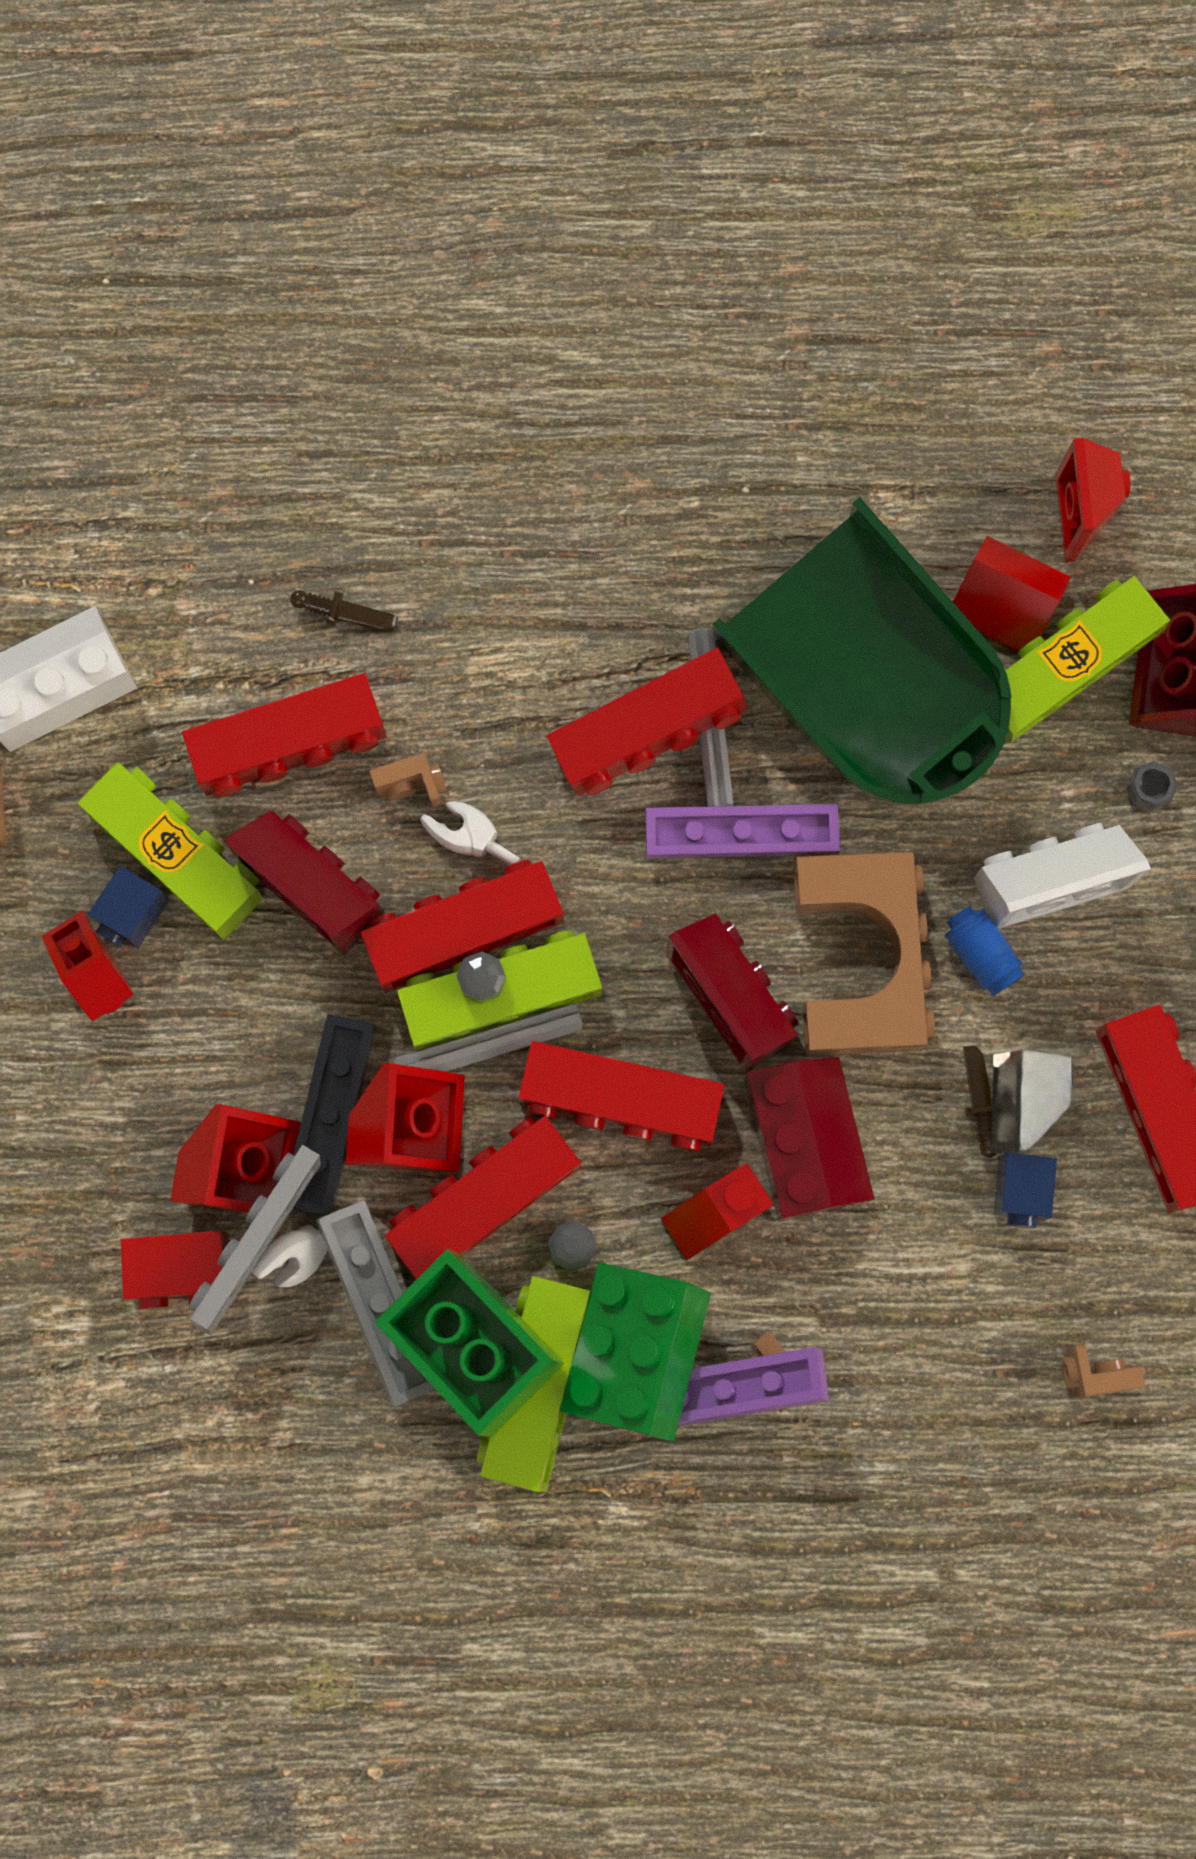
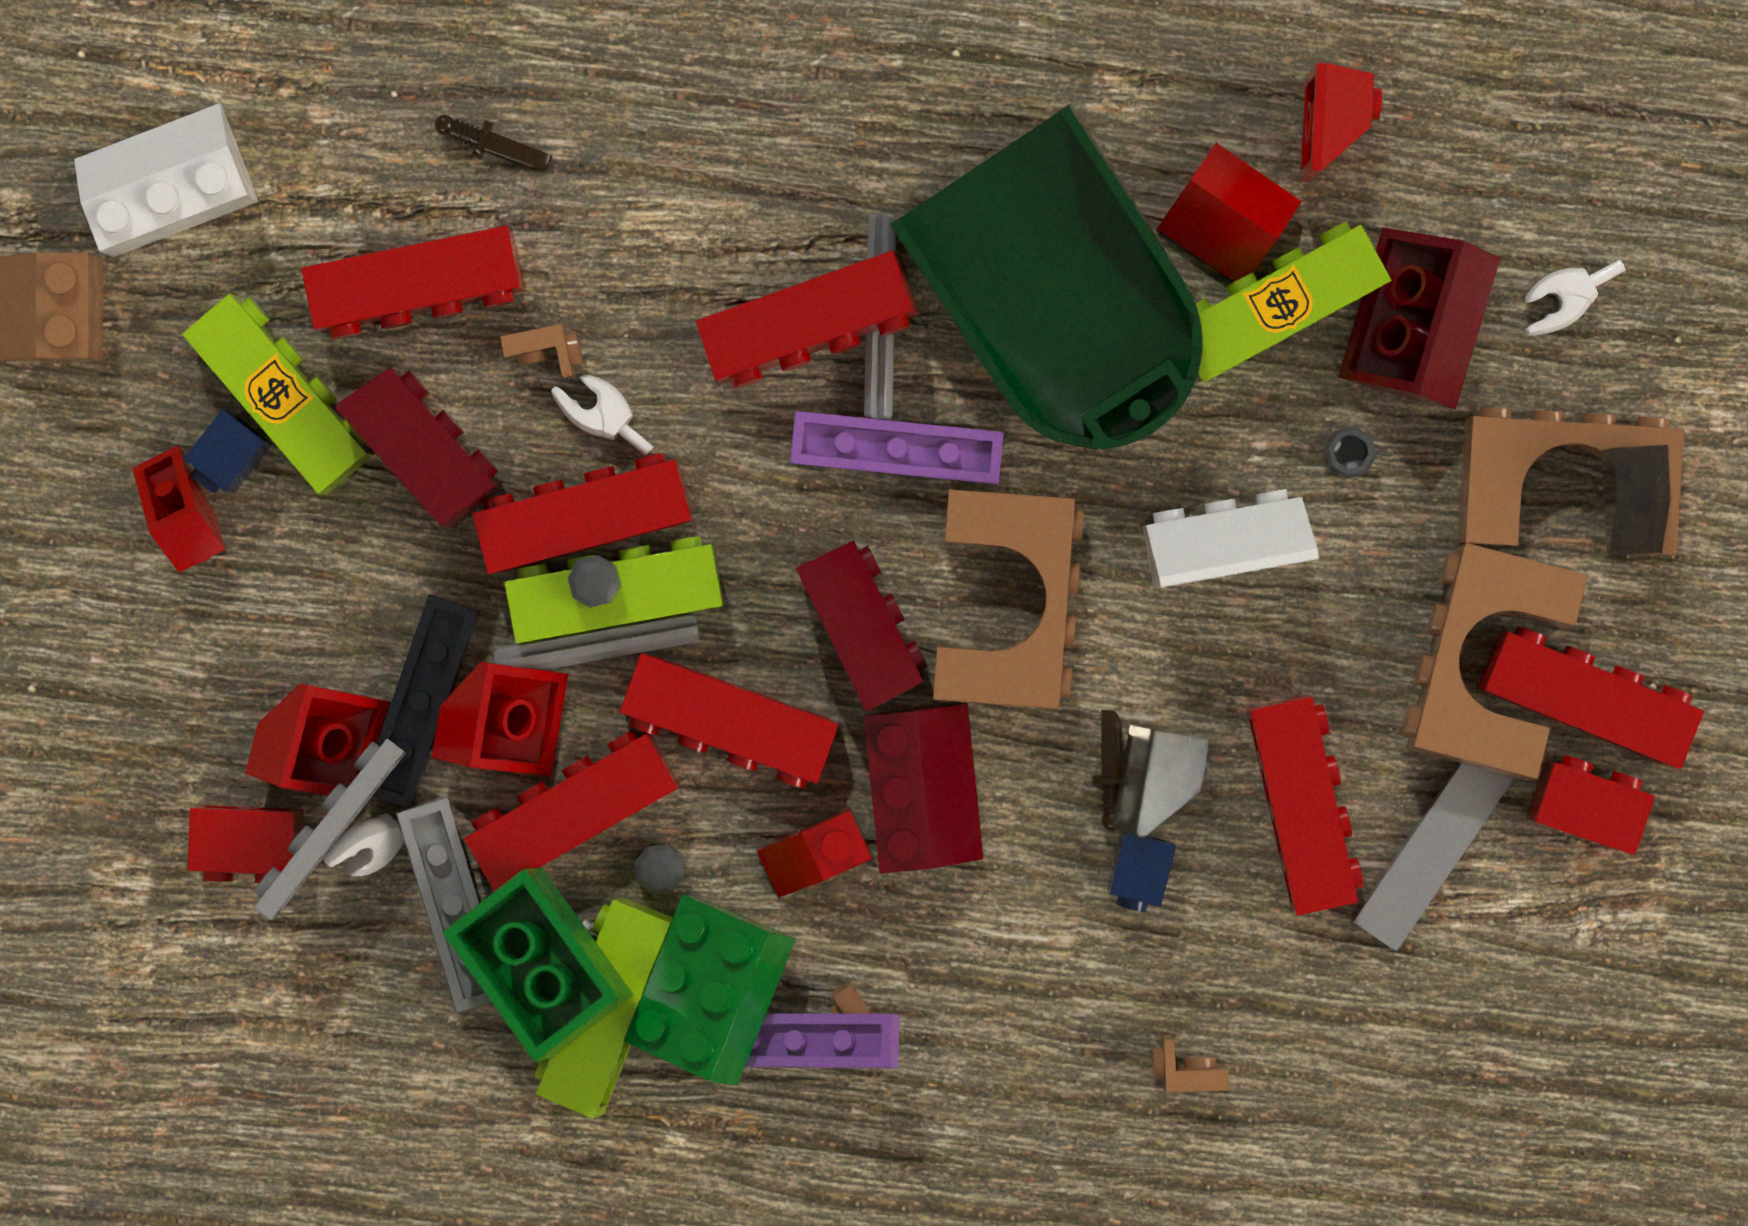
camera: 10 degrees right, 10 degrees up
(984, 950) = (1137, 611): blue head -> none

